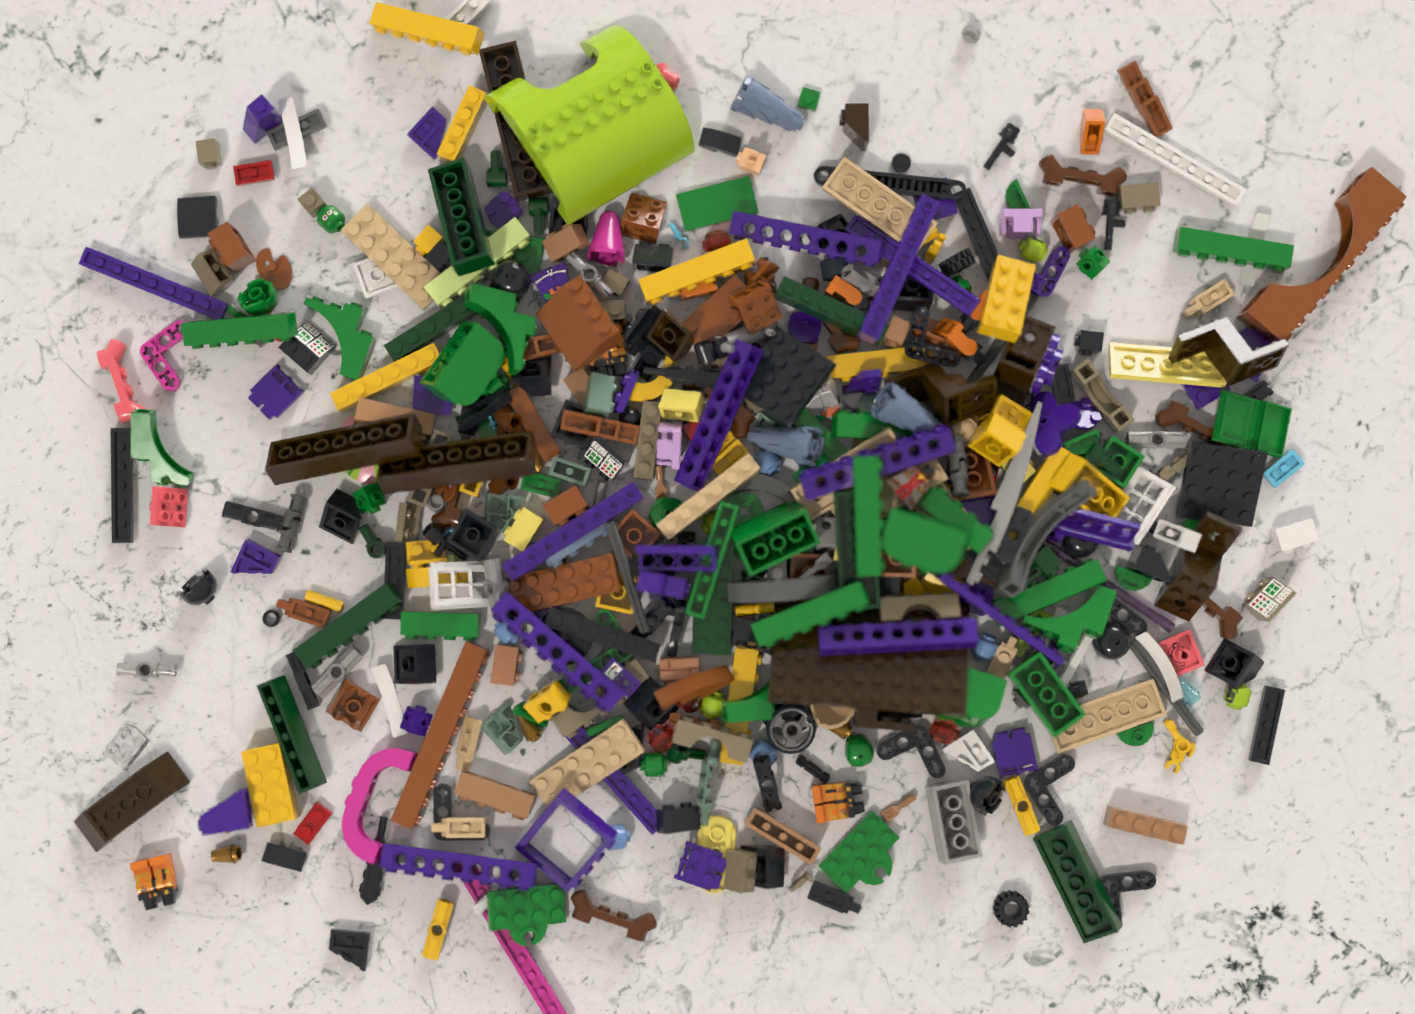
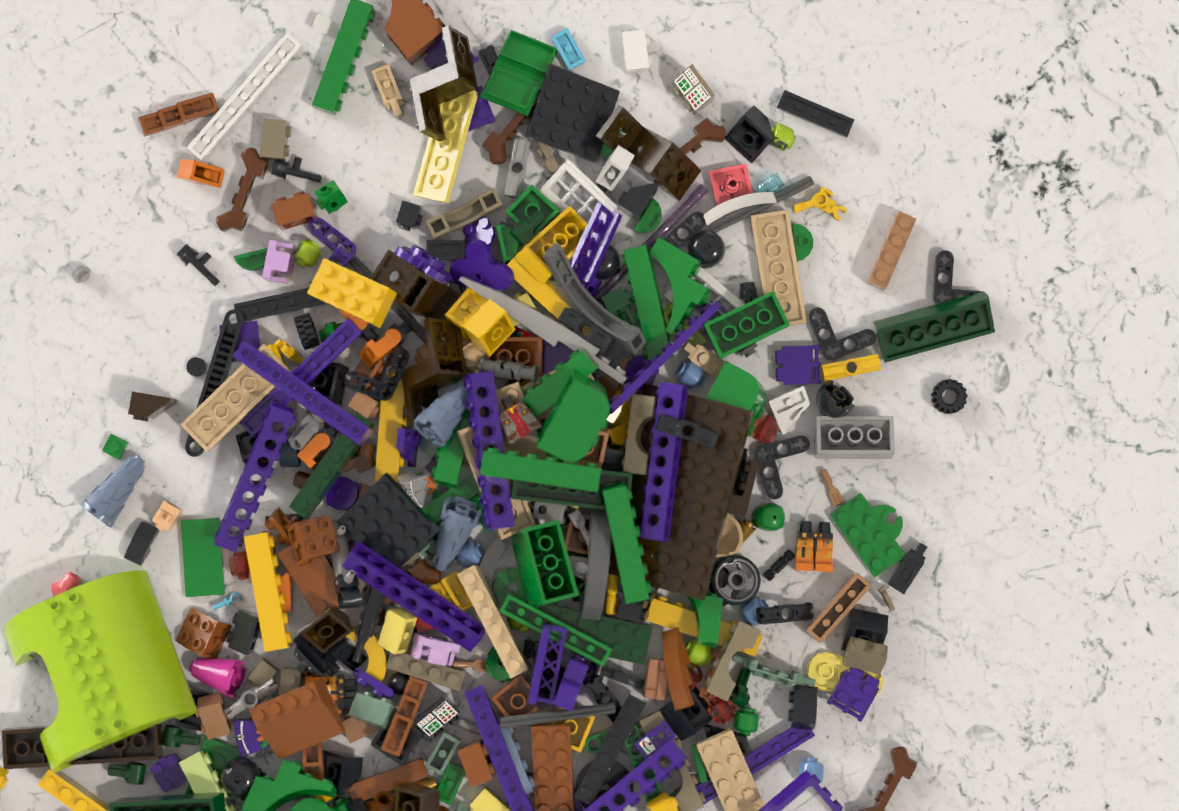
camera: 80 degrees left, 0 degrees up
(931, 667) = (699, 435): none -> black piece

